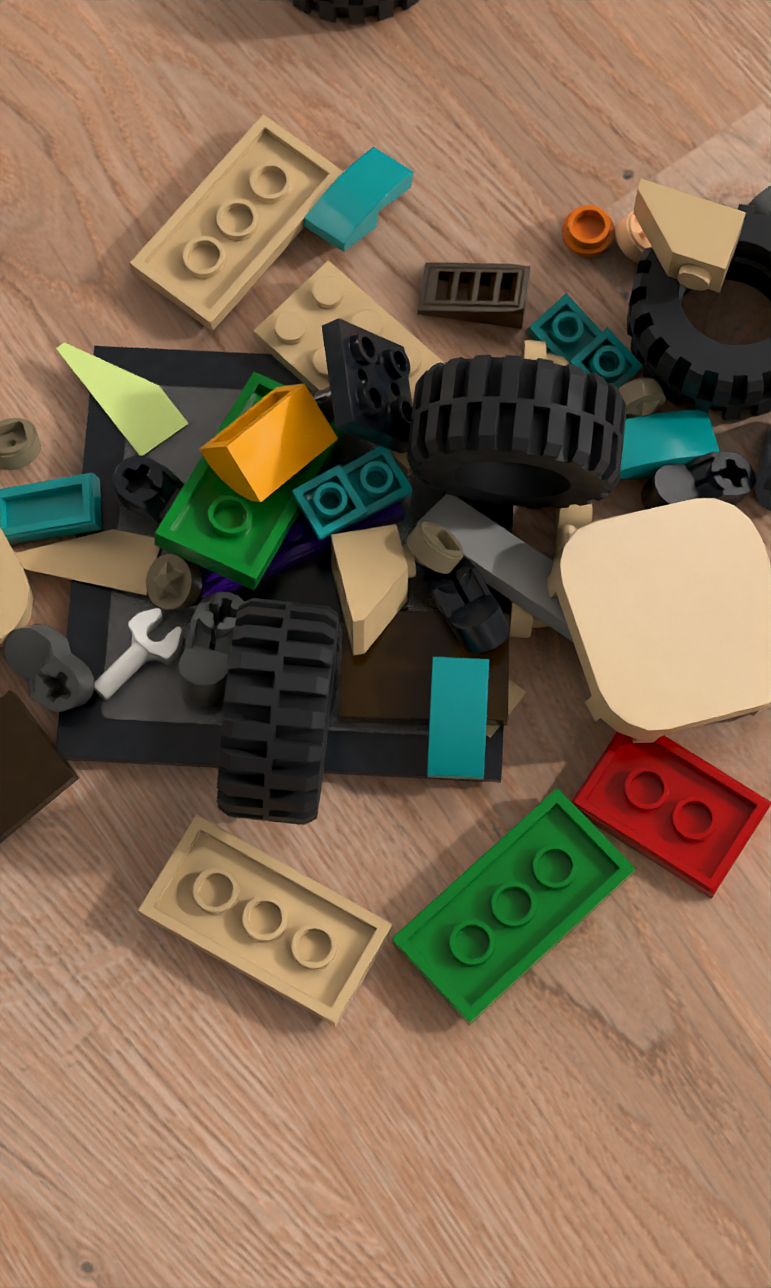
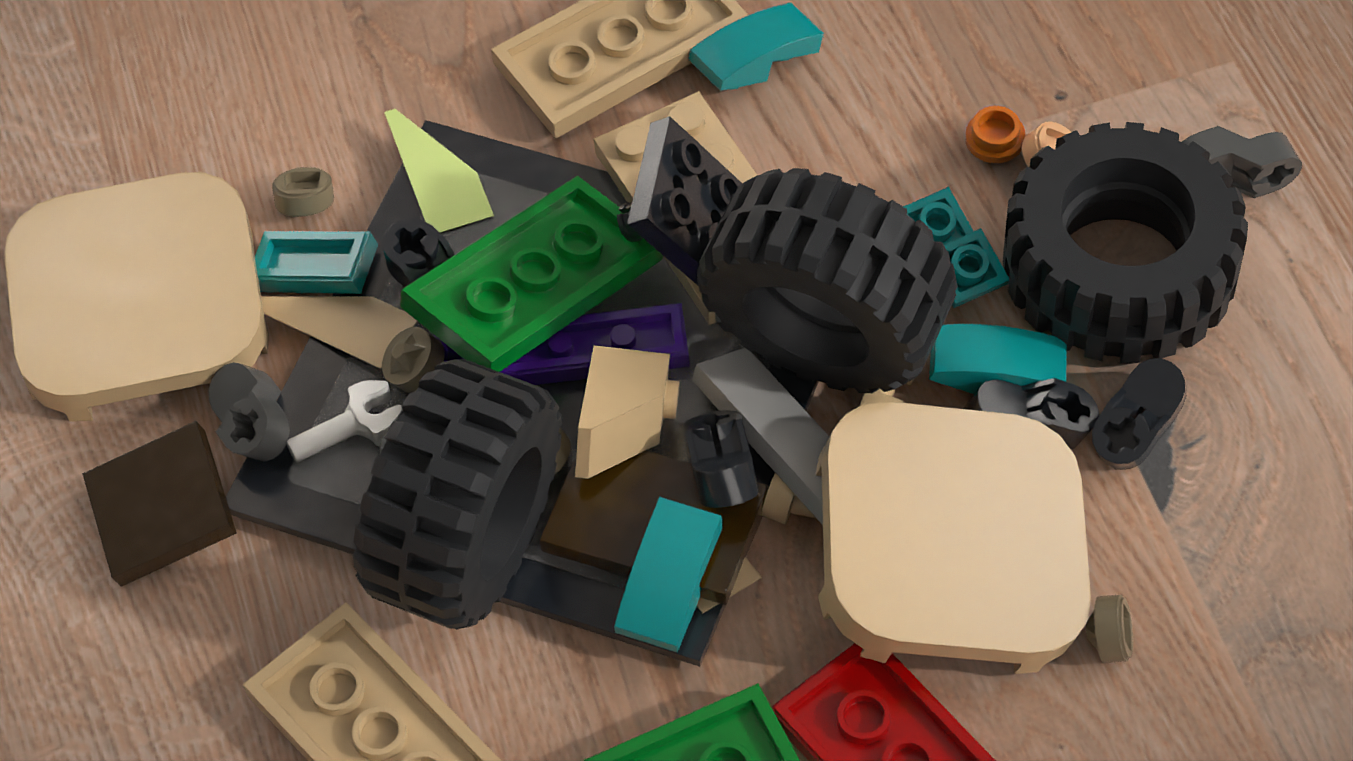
camera: 20 degrees right, 15 degrees down
(269, 442) = (560, 235): light orange brick -> none
(352, 492) = (634, 314): teal slope -> none
(435, 547) = (703, 386): dark tan tile -> none
(489, 312) = (890, 157): dark brown slope -> none
(642, 397) = (991, 305): dark tan tile -> none
(688, 234) = (1092, 135): tan slope -> none

